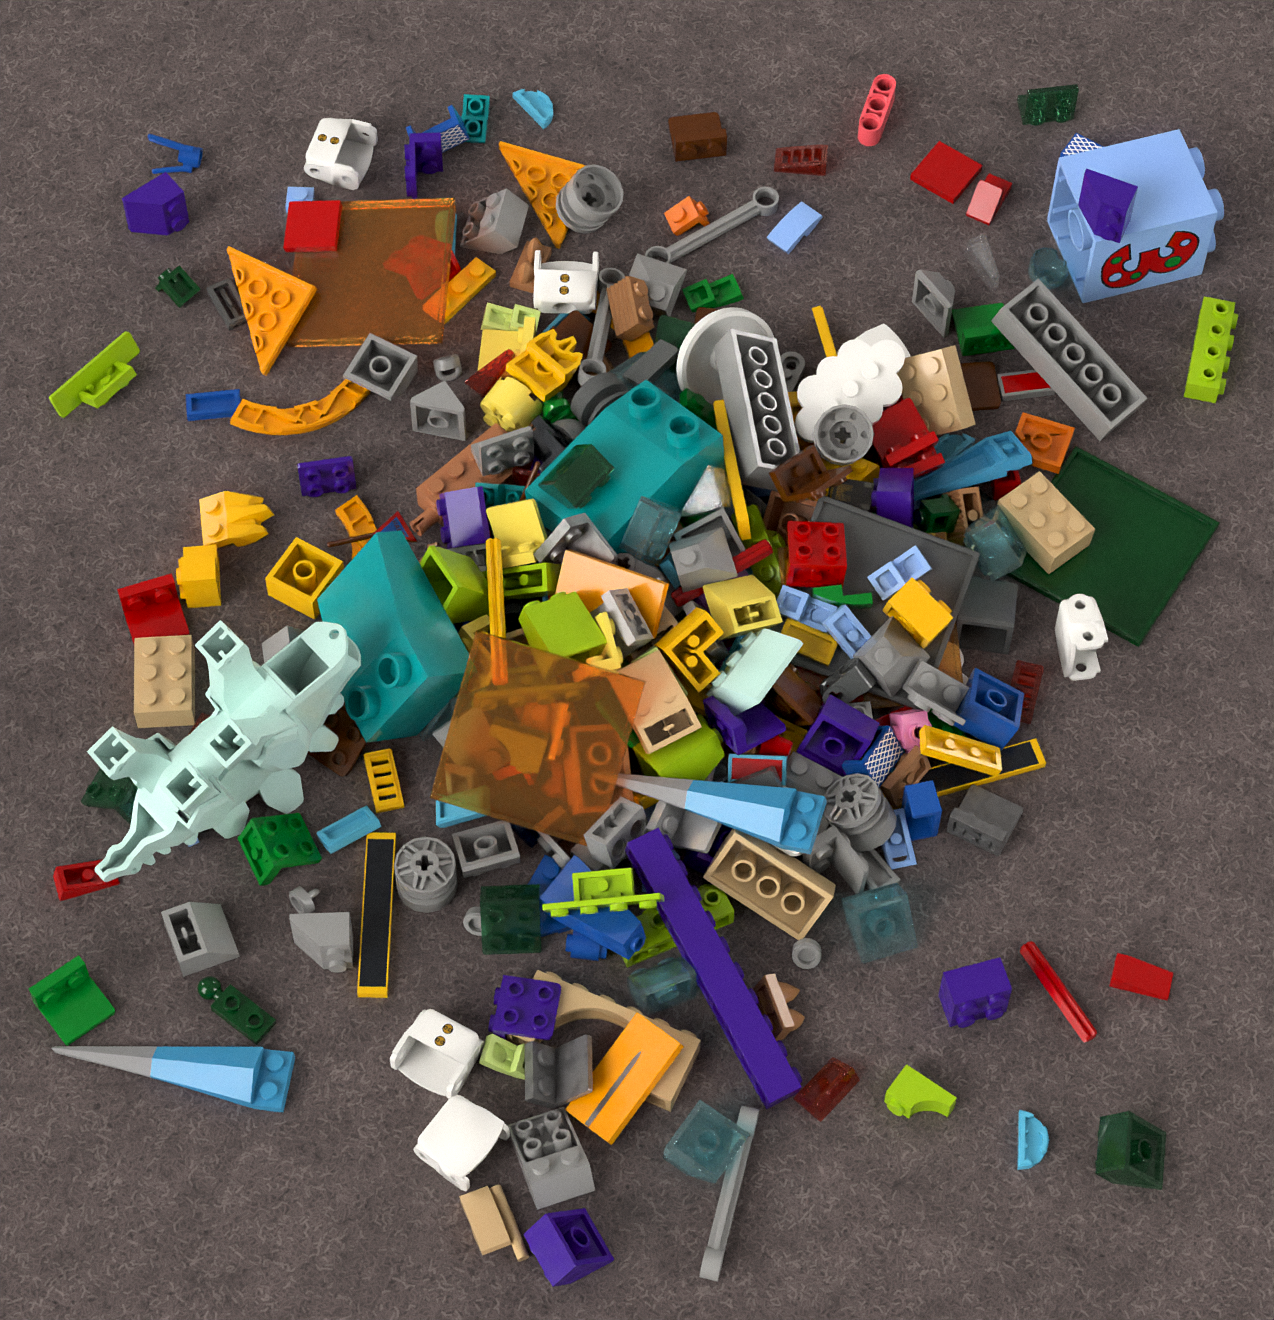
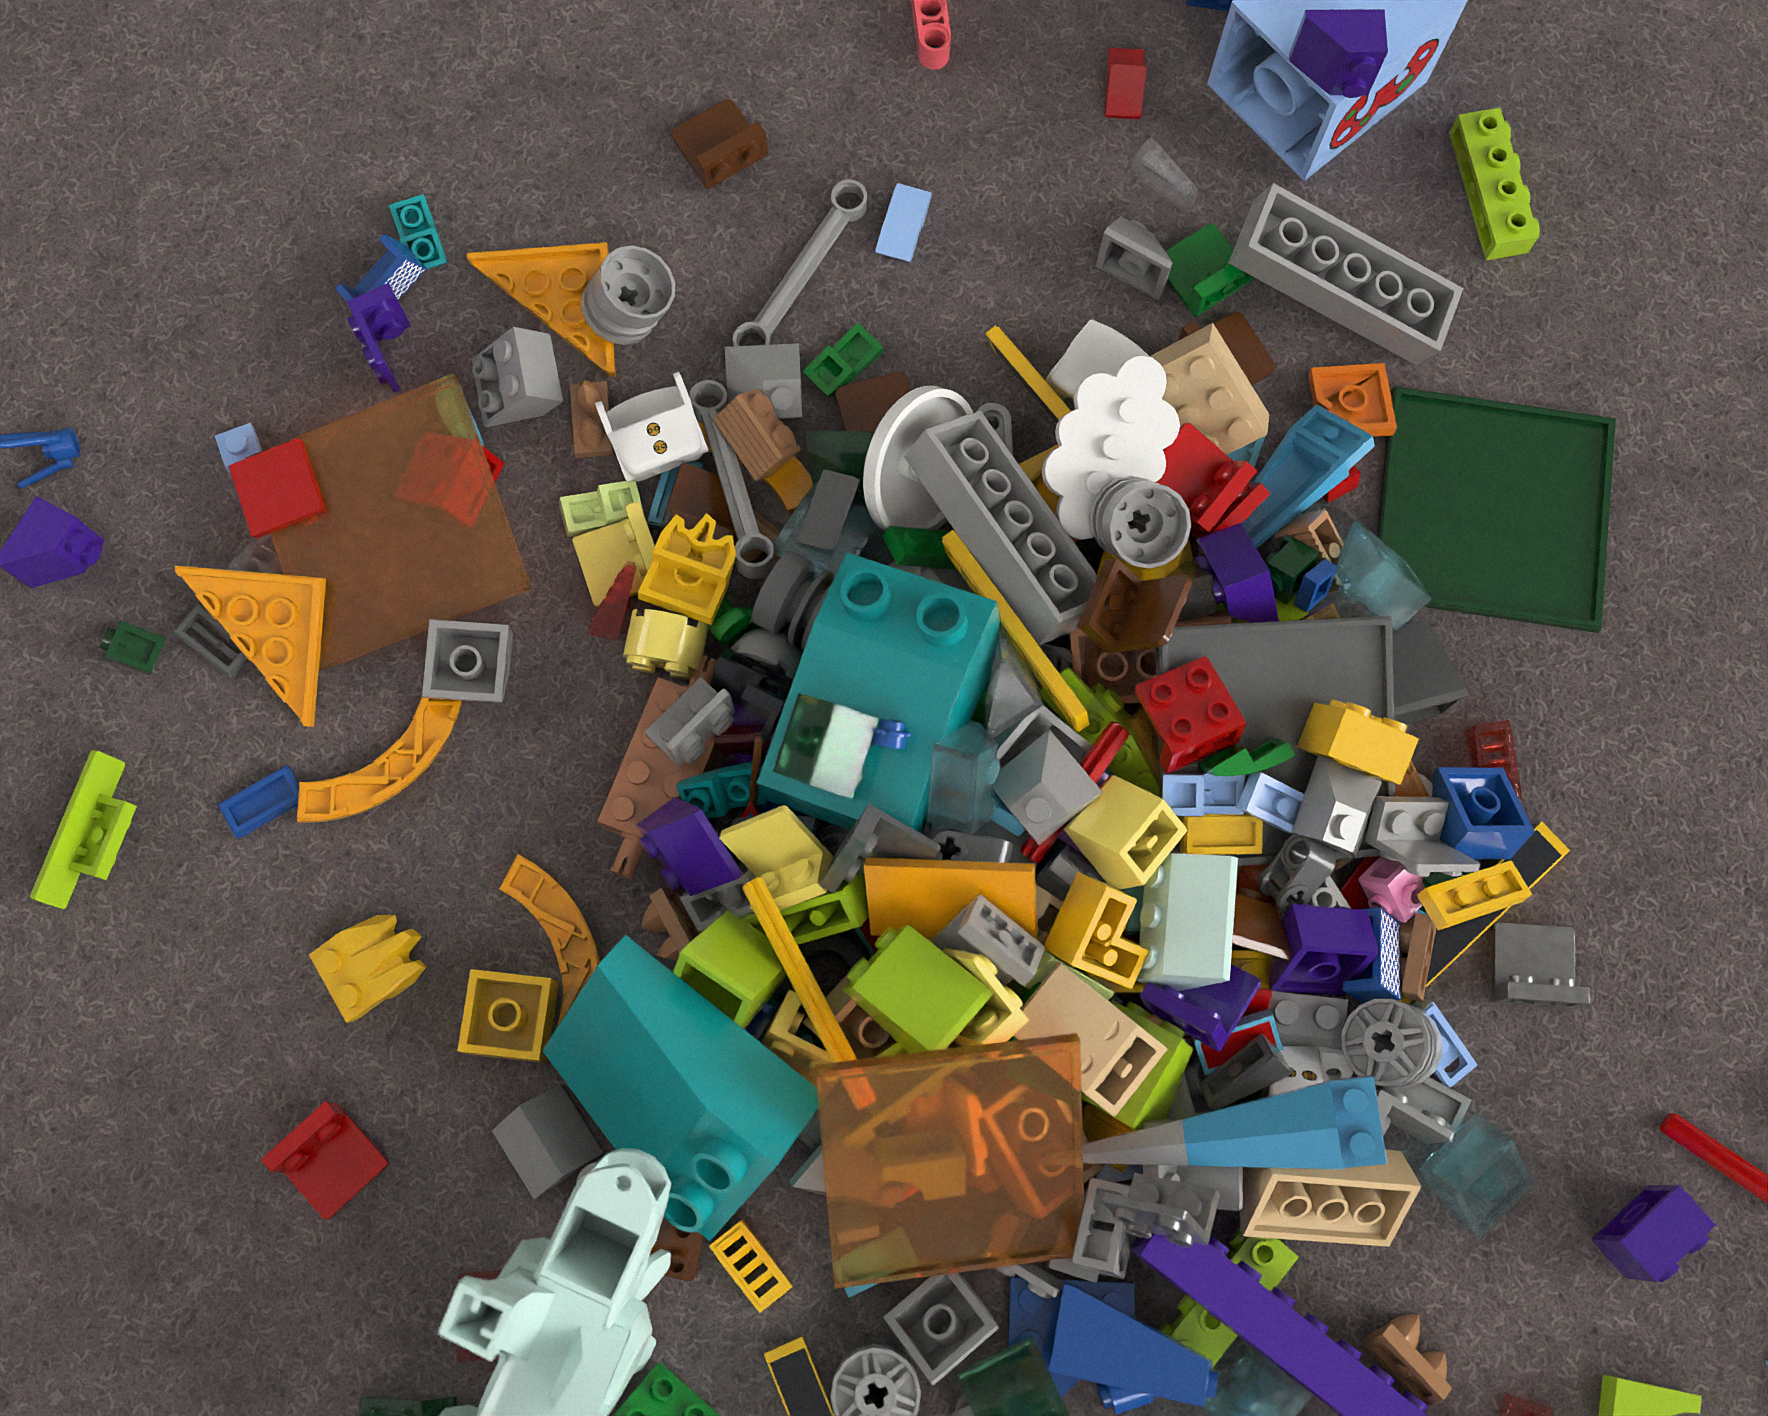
camera: 25 degrees left, 15 degrees up
(164, 681) = (387, 1257): tan brick -> none
(199, 576) = (362, 1074): yellow brick -> none
(326, 476) = (463, 844): dark purple bracket -> none
(341, 152) = (263, 357): white piece -> none
(348, 829) = (737, 1361): medium azure tile -> none
(394, 523) = (590, 882): piece -> none
(438, 413) = (574, 692): light grey slope -> none
(446, 363) = (548, 609): light grey tile -> none
(467, 285) = (520, 480): yellow plate -> none
(536, 105) = (490, 181): medium azure tile -> none
(603, 889) = (1143, 1344): lime bracket -> none
(618, 481) = (890, 734): none -> blue plate
(648, 815) = (1165, 1208): none -> flat silver bracket
(686, 215) = (759, 263): orange bracket -> none
(806, 953) = (1407, 1263): light grey tile -> none
(807, 167) = (883, 129): clear red slope -> none
(897, 573) = (1301, 690): light blue slope -> none
(921, 810) = (1465, 998): blue panel -> none
(946, 172) = (1054, 67): red tile -> none
(952, 525) = (1315, 585): none -> blue tile
(1022, 385) = (1289, 327): tile -> none
(1046, 262) = (1242, 144): clear light blue hair -> none
(1046, 522) = (1420, 515): tan brick -> none
(1079, 635) = (1534, 659): white piece -> none

